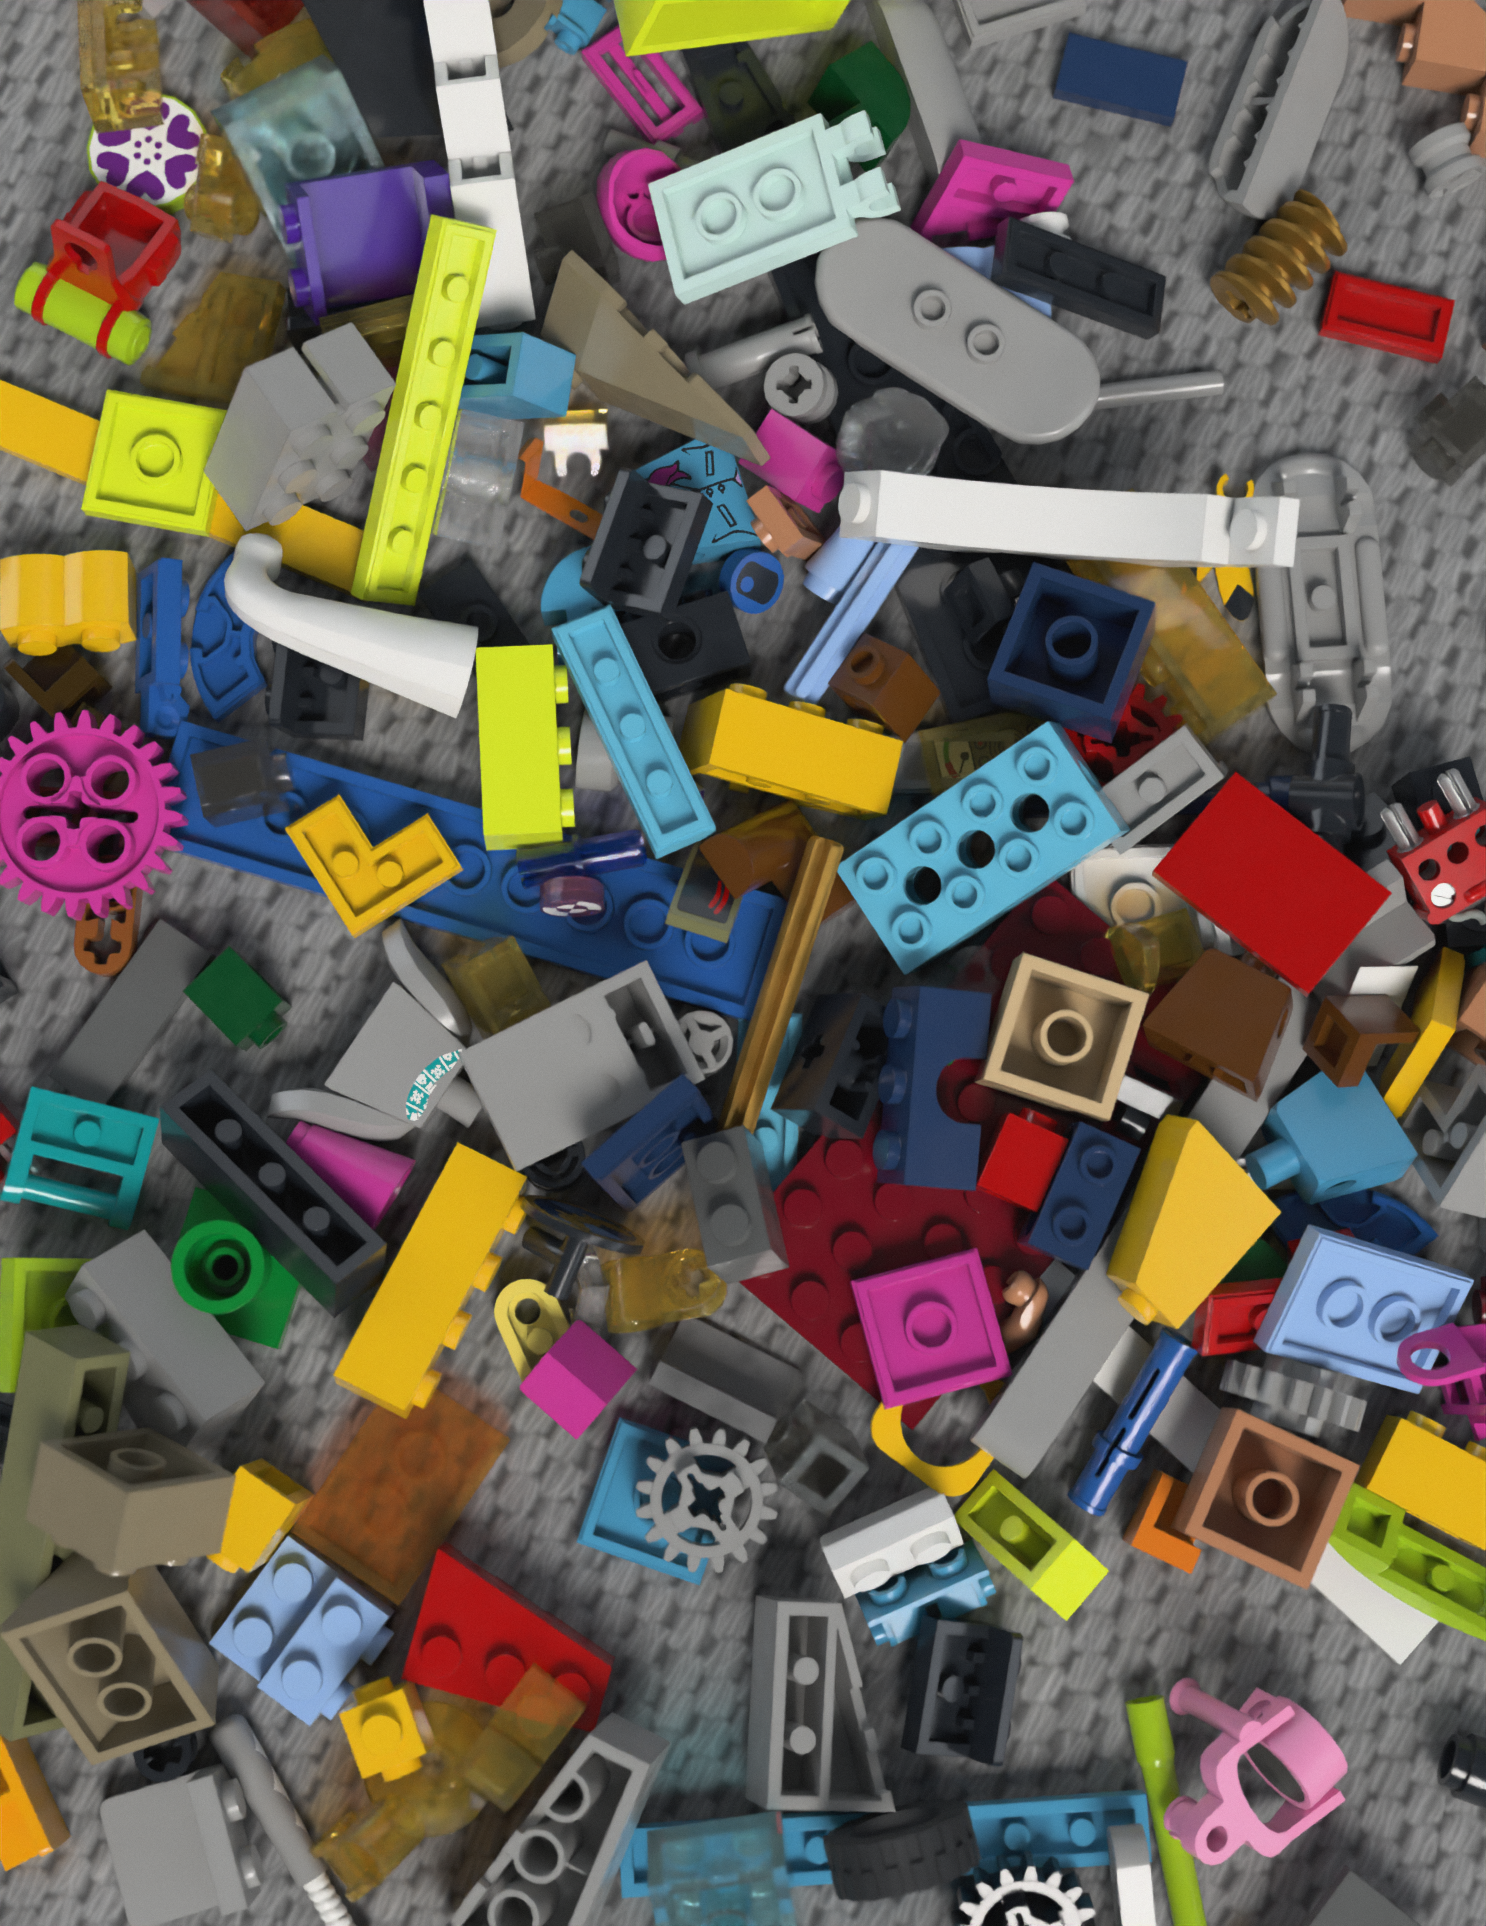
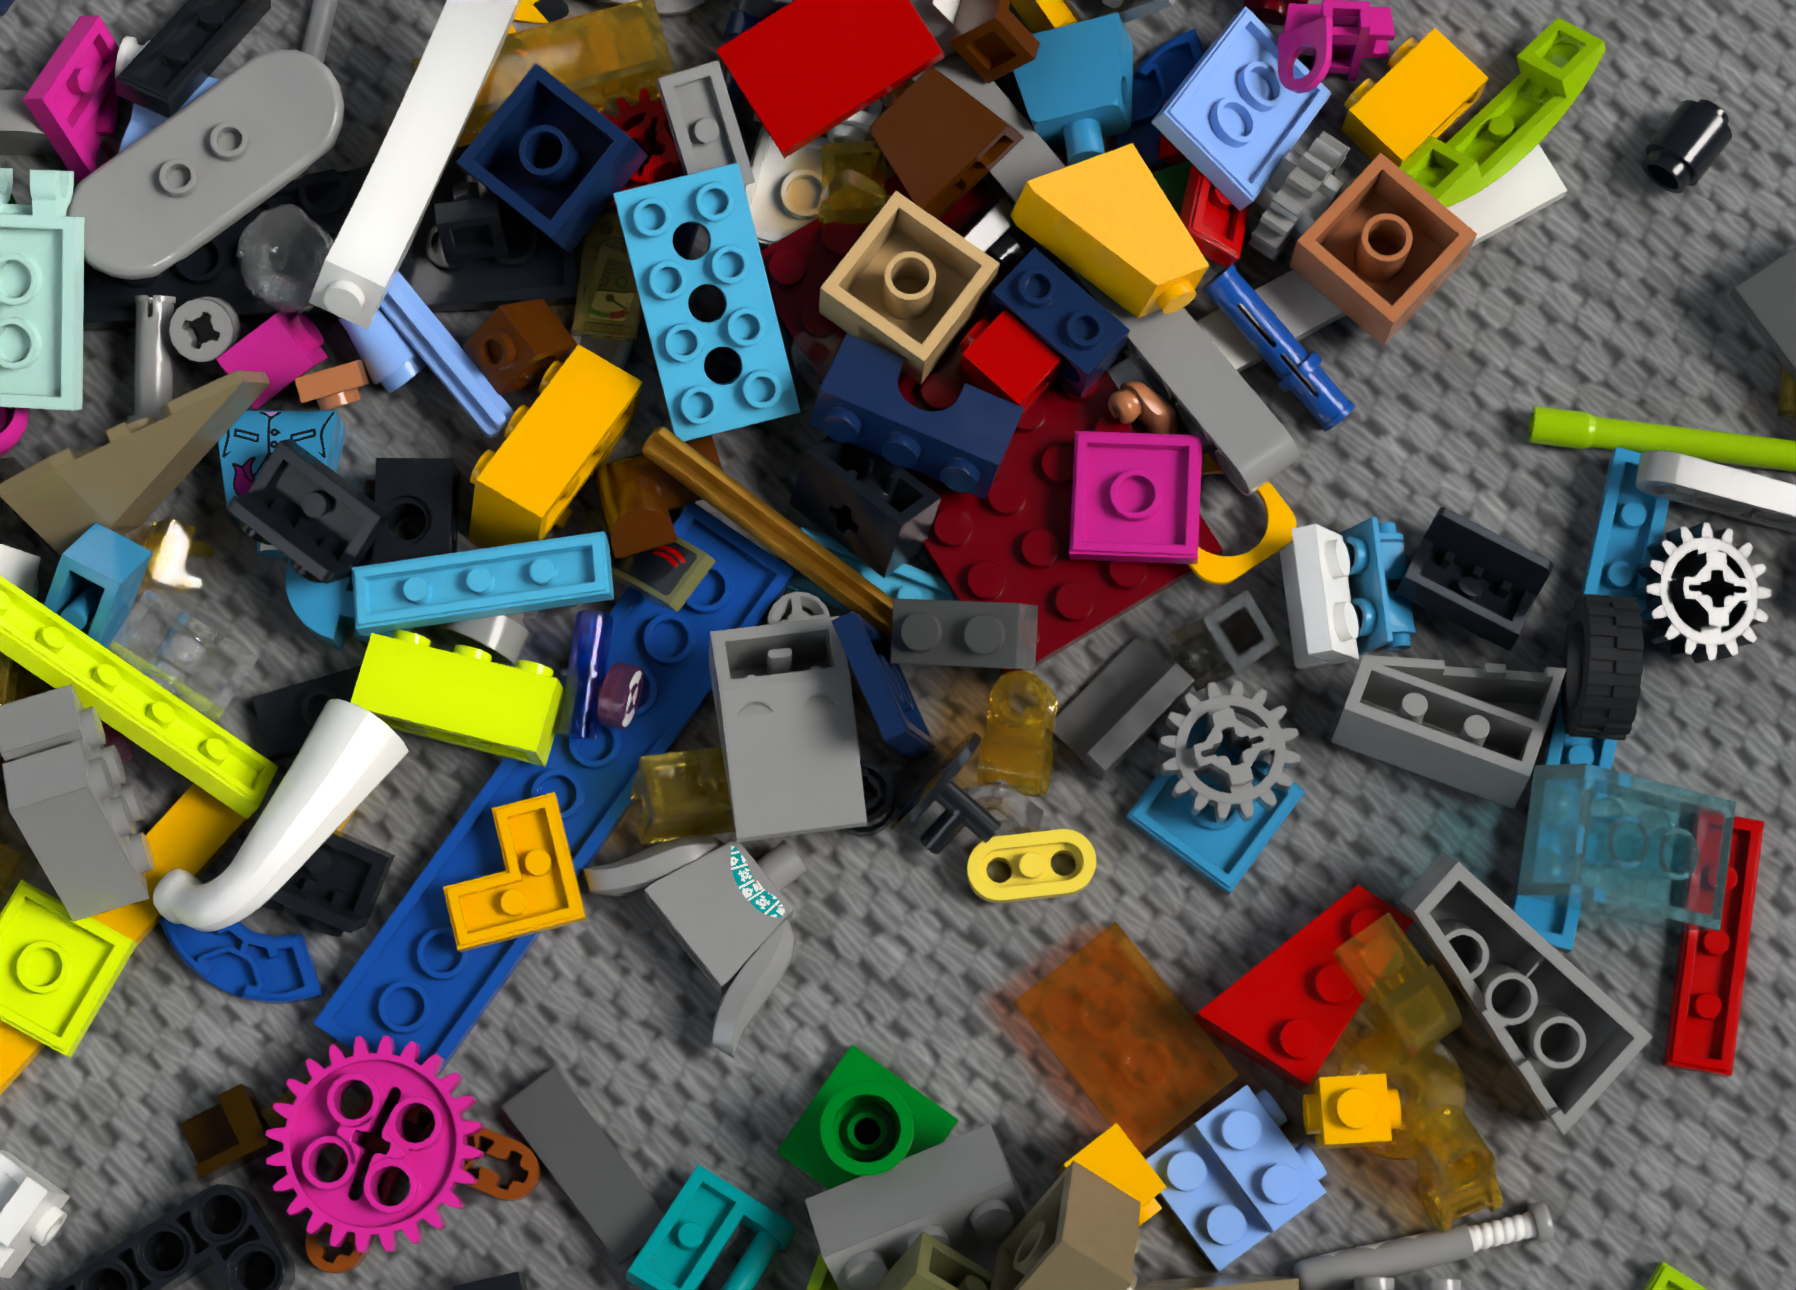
camera: 70 degrees left, 5 degrees down
(68, 601) = (153, 1099): yellow brick -> none
(159, 650) = (230, 1023): blue hinge -> none
(239, 1001) = (610, 1050): dark green brick -> none
(242, 781) = (398, 973): clear smoke brick -> none
(272, 1193) = (798, 1068): black brick -> none
(355, 1170) = (811, 993): dark pink piece -> none
(432, 1281) = (944, 944): yellow brick -> none
(551, 499) = (229, 597): orange piece -> none
(577, 1378) = (1080, 837): dark pink panel -> none
(752, 580) = (370, 435): blue tile -> none
(1030, 1544) = (1362, 474): neon yellow slope -> none
(1152, 1520) = (1371, 362): orange panel -> none
(1284, 1749) = (1613, 311): bright pink piece -> none

